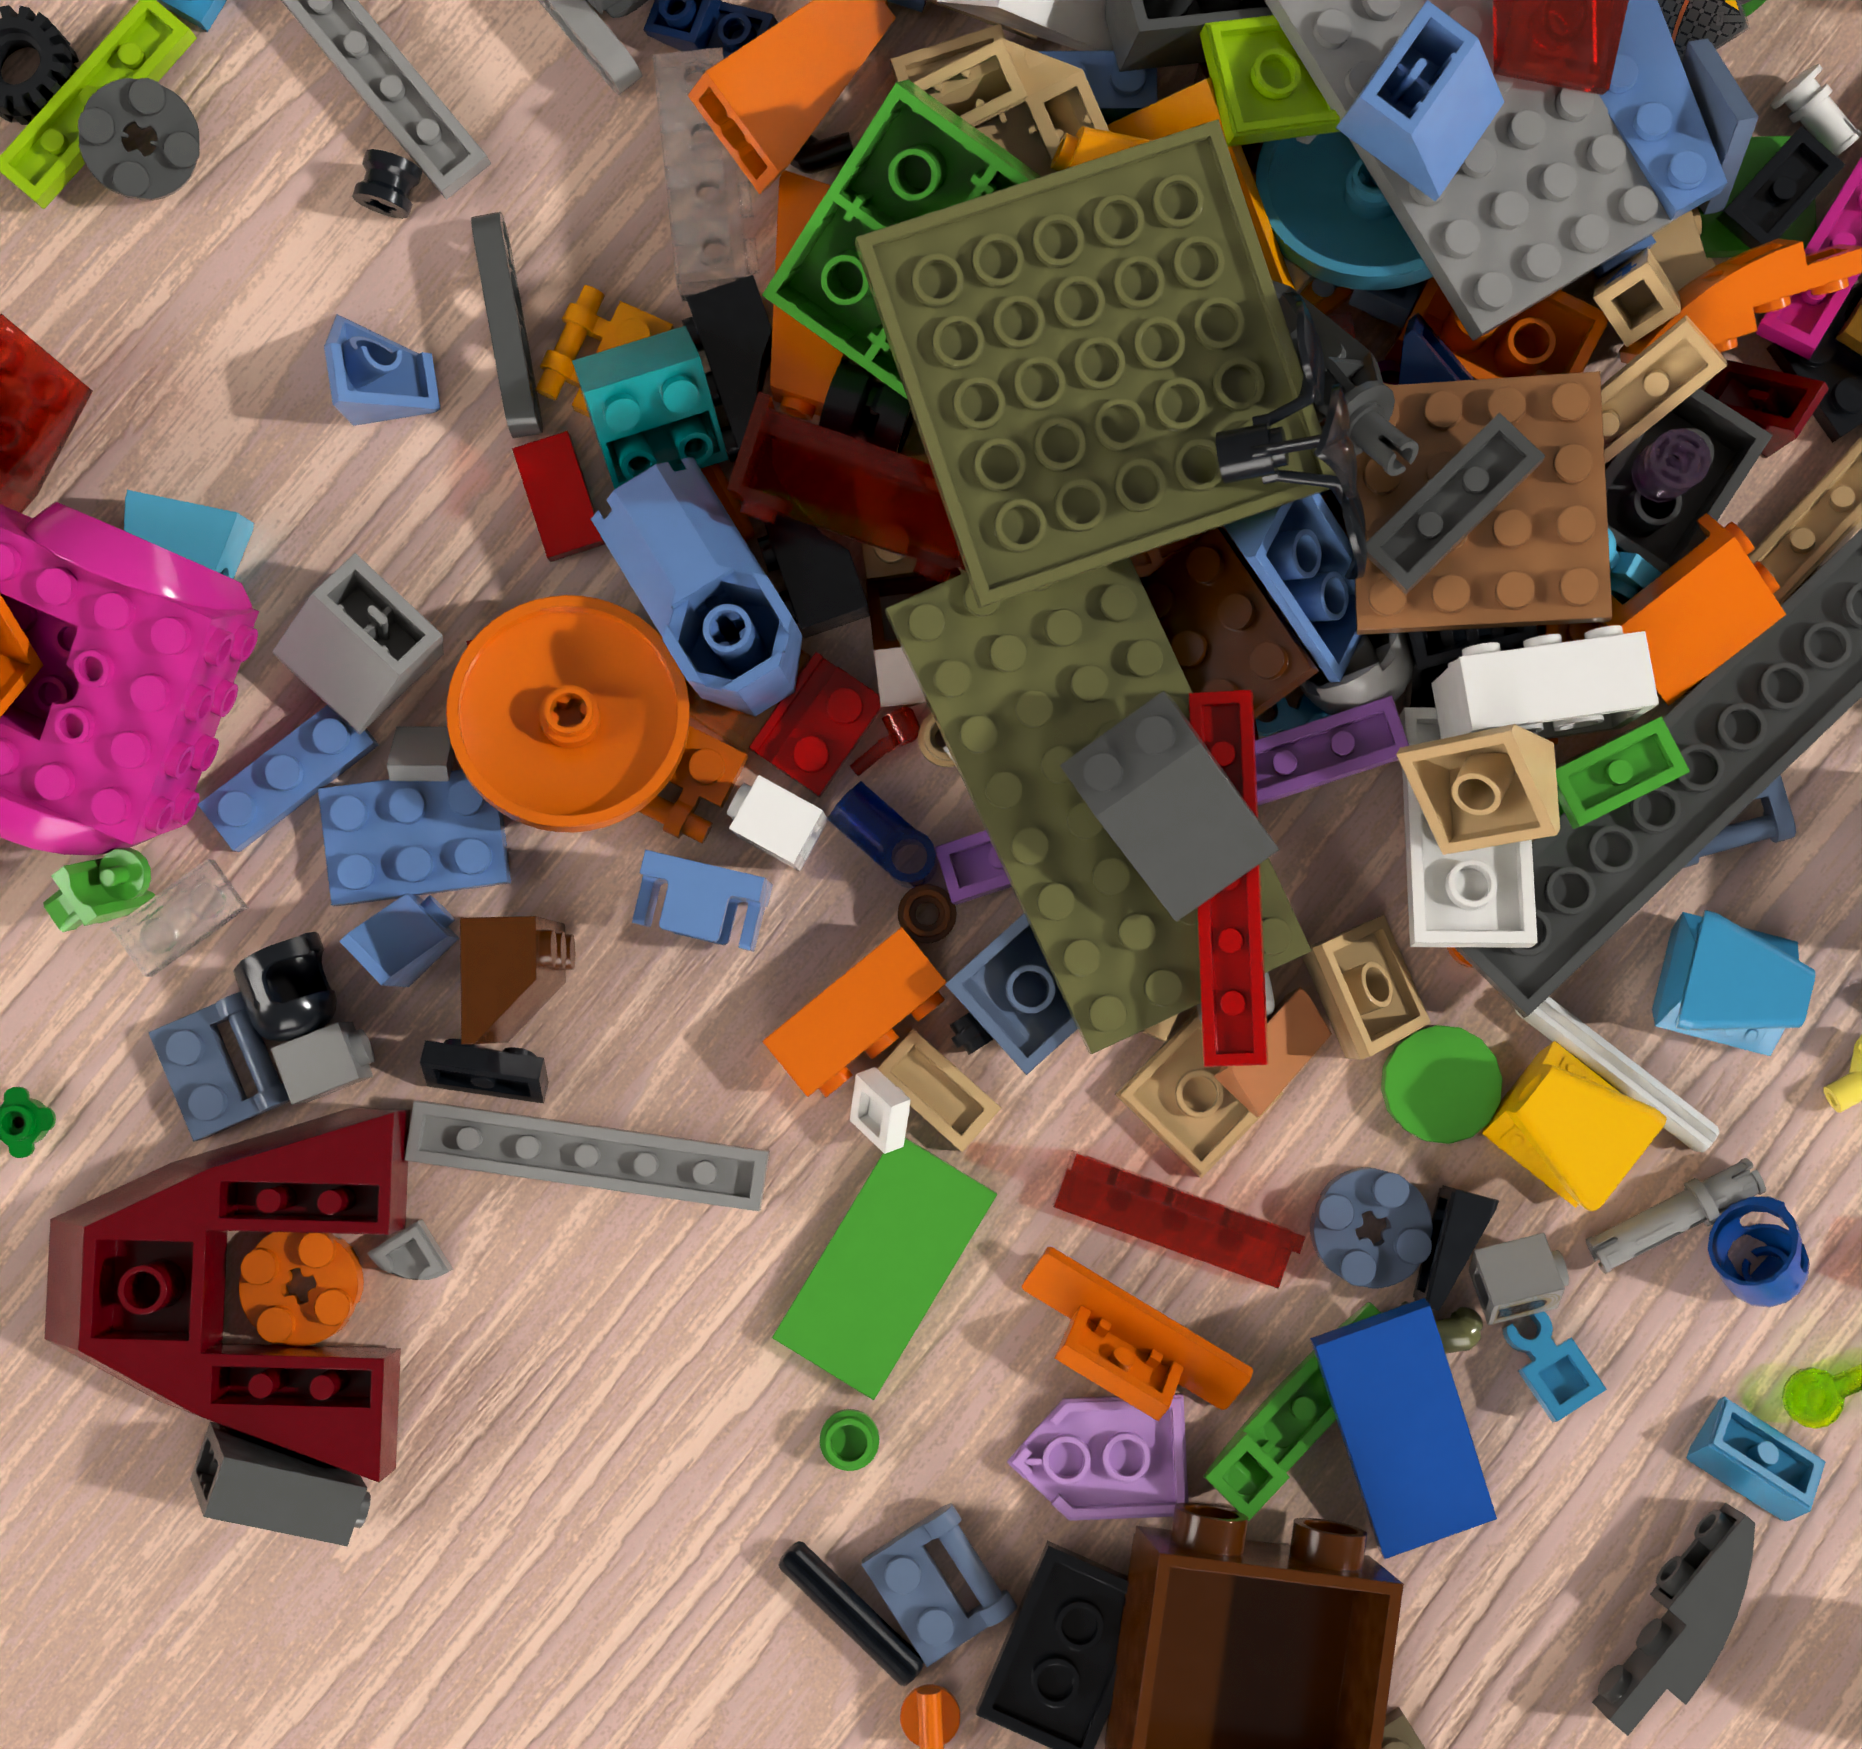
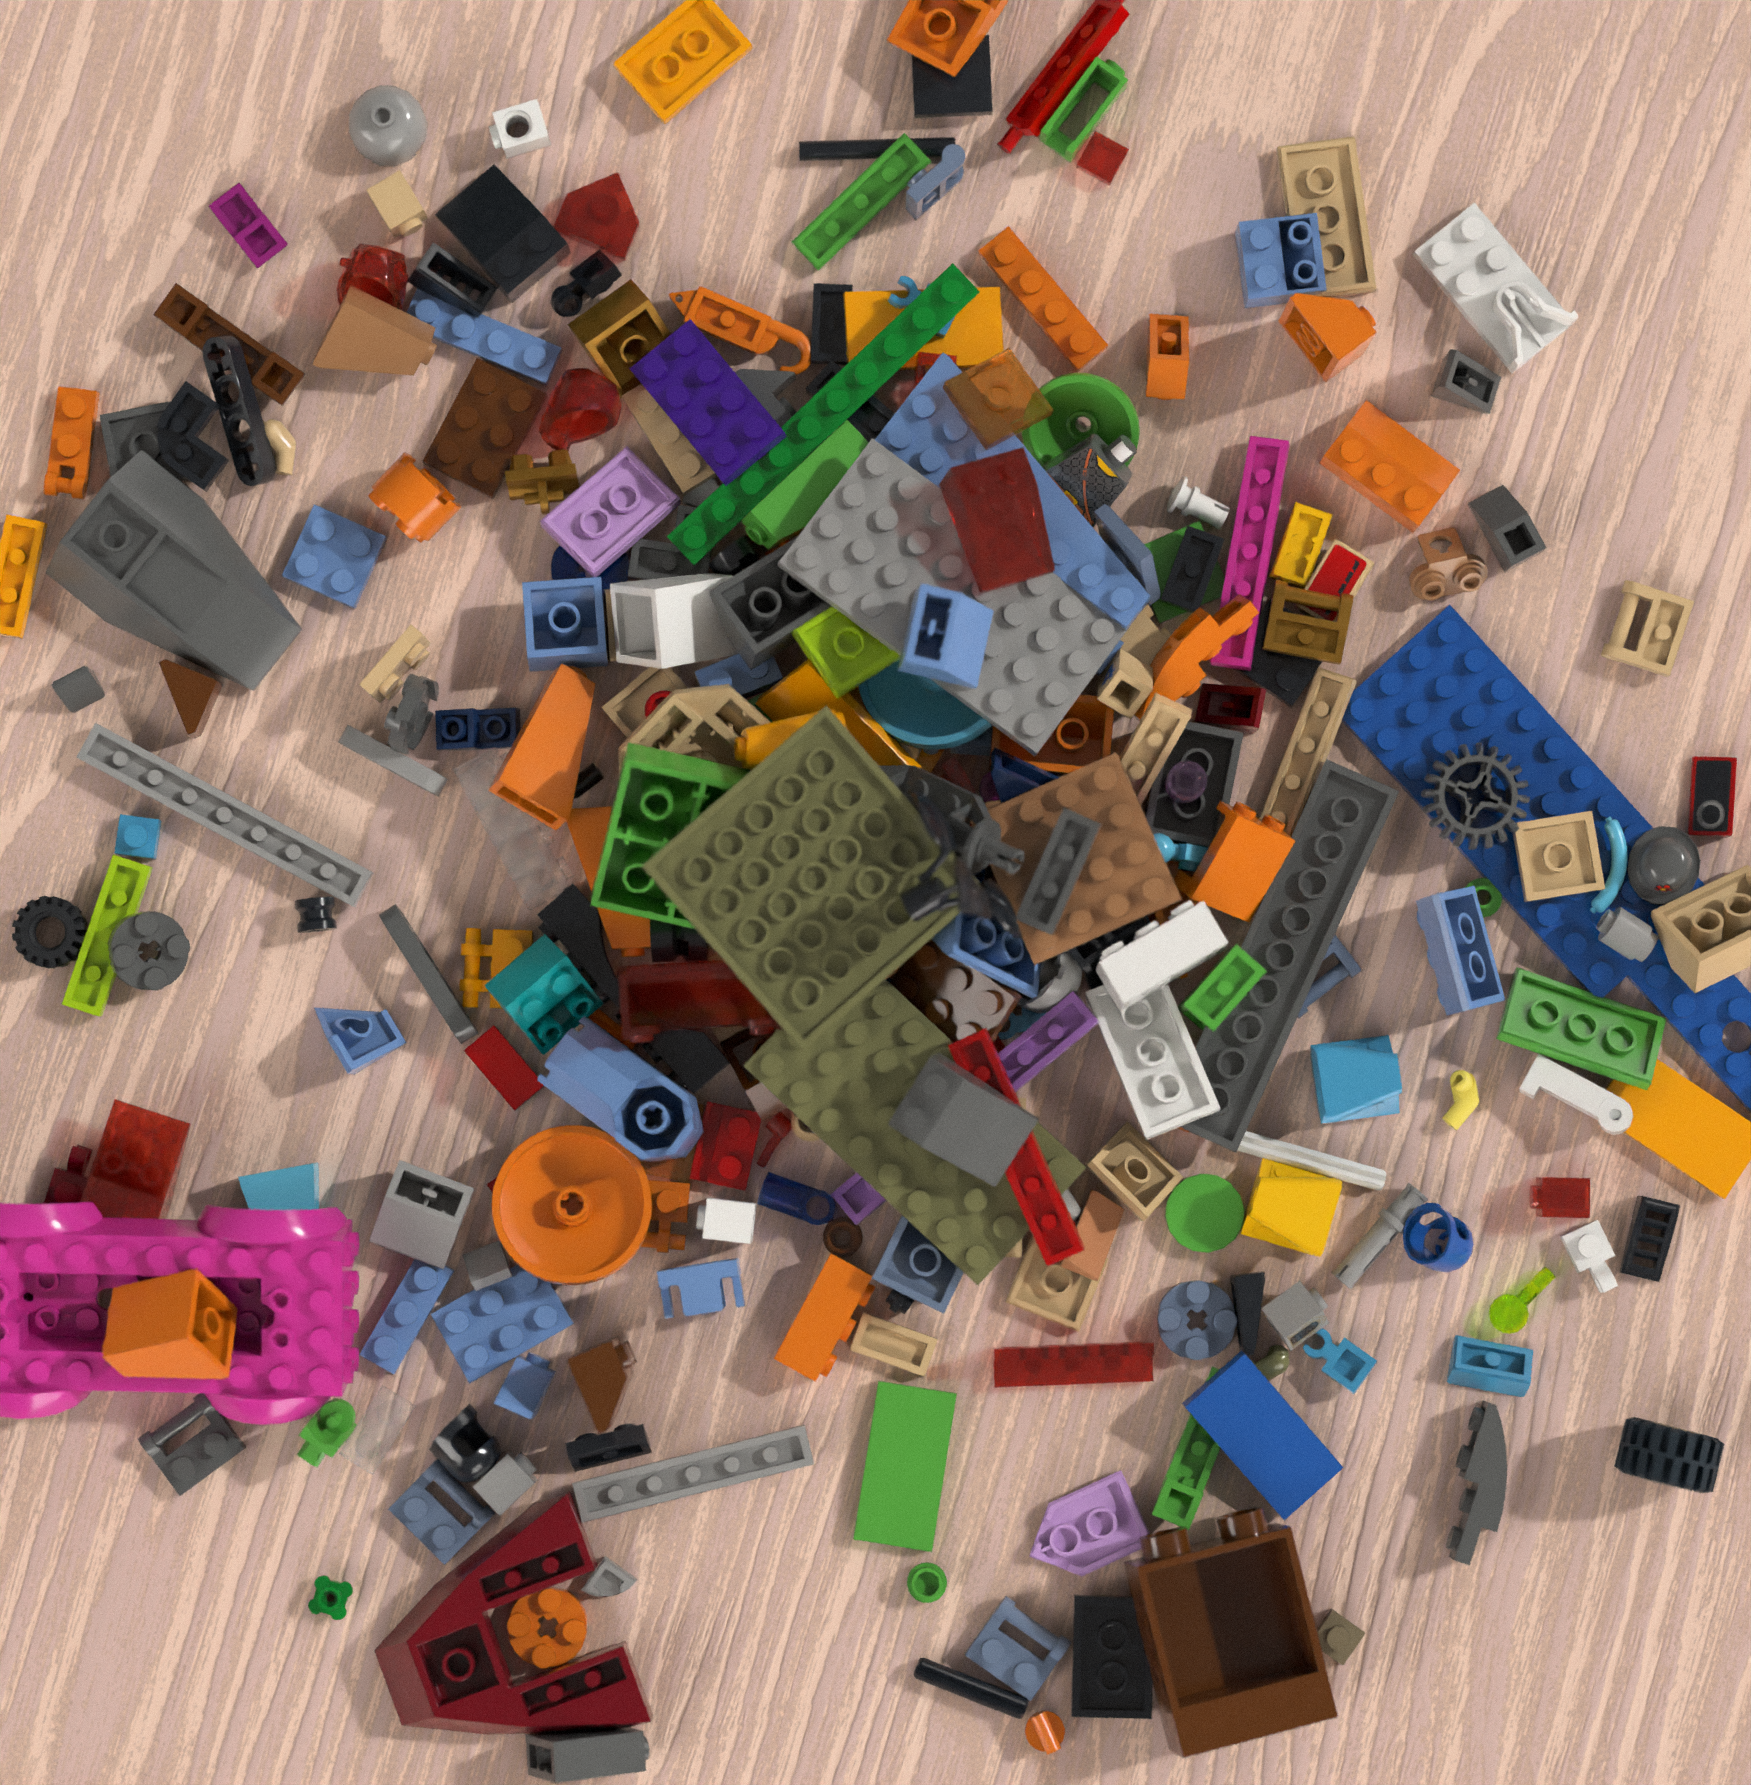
camera: 25 degrees left, 0 degrees up
(880, 1110) = (863, 1371): white plate -> none
(1129, 1343) = (1075, 1452): orange bracket -> none
(1485, 787) = (1148, 1030): tan slope -> none

